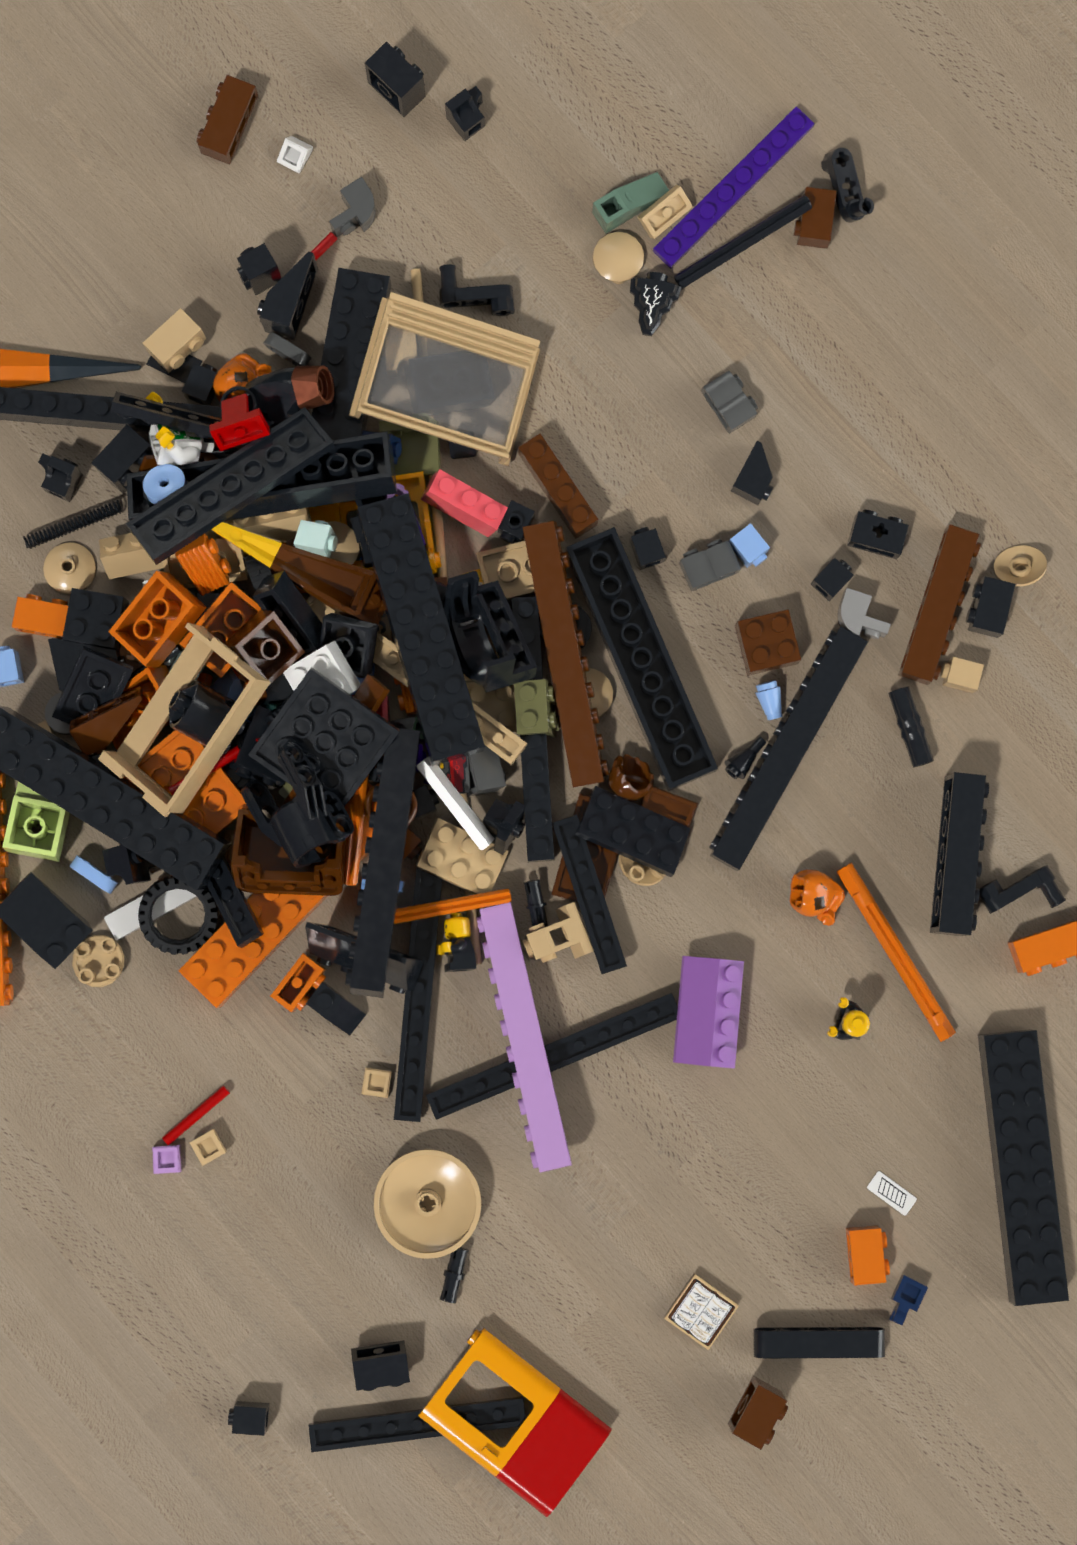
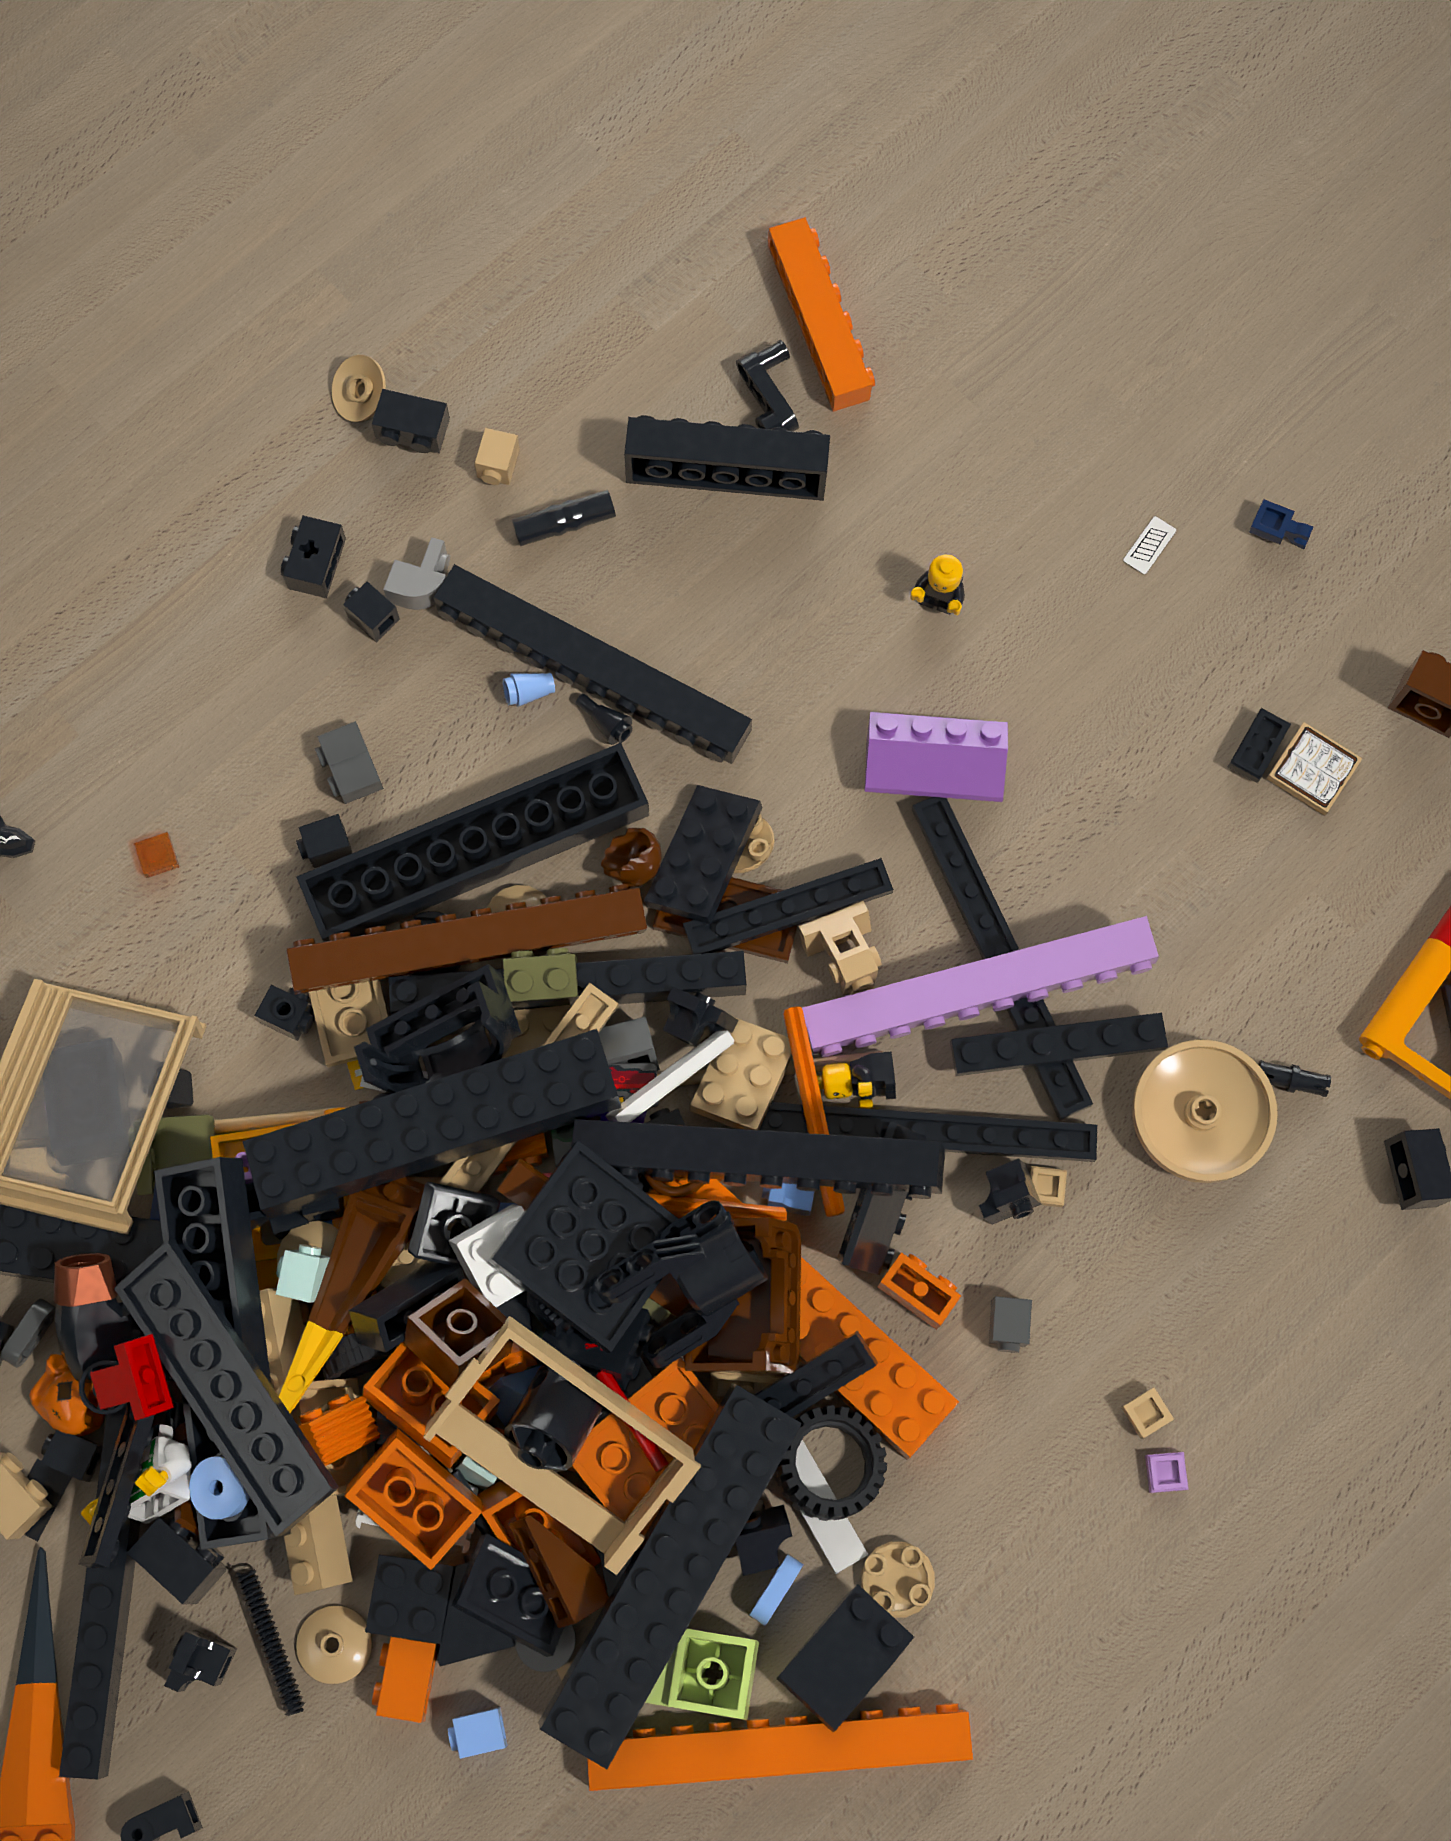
camera: 90 degrees left, 10 degrees down
(195, 1115) = (1104, 1433): red bar -> none
(274, 1049) = (1010, 1323): none -> dark grey brick
(336, 1008) = (950, 1241): black slope -> none
(370, 1054) = (1010, 1193): none -> black brick
(464, 503) = (257, 1078): coral brick -> none
(480, 1096) = (1058, 1044): none -> black plate
(535, 902) = (800, 980): black axle -> none
(558, 486) = (235, 957): reddish brown brick -> none
(640, 425) = (156, 855): none -> clear orange plate
(670, 805) = (668, 810): reddish brown tile -> none
(720, 1268) = (1259, 745): none -> black plate
(729, 401) = (130, 739): dark grey brick -> none
(749, 546) = (325, 711): light blue brick -> none
(754, 477) = (231, 707): black slope -> none
(767, 642) = (453, 689): reddish brown brick -> none
(816, 895) = (781, 631): orange piece -> none
(819, 1342) = (1341, 626): black beam -> none
(867, 1255) = (1229, 570): orange brick -> none
(896, 952) = (848, 538): orange piece -> none
(939, 604) = (406, 483): reddish brown brick -> none
(1023, 1167) = (1109, 390): black brick -> none

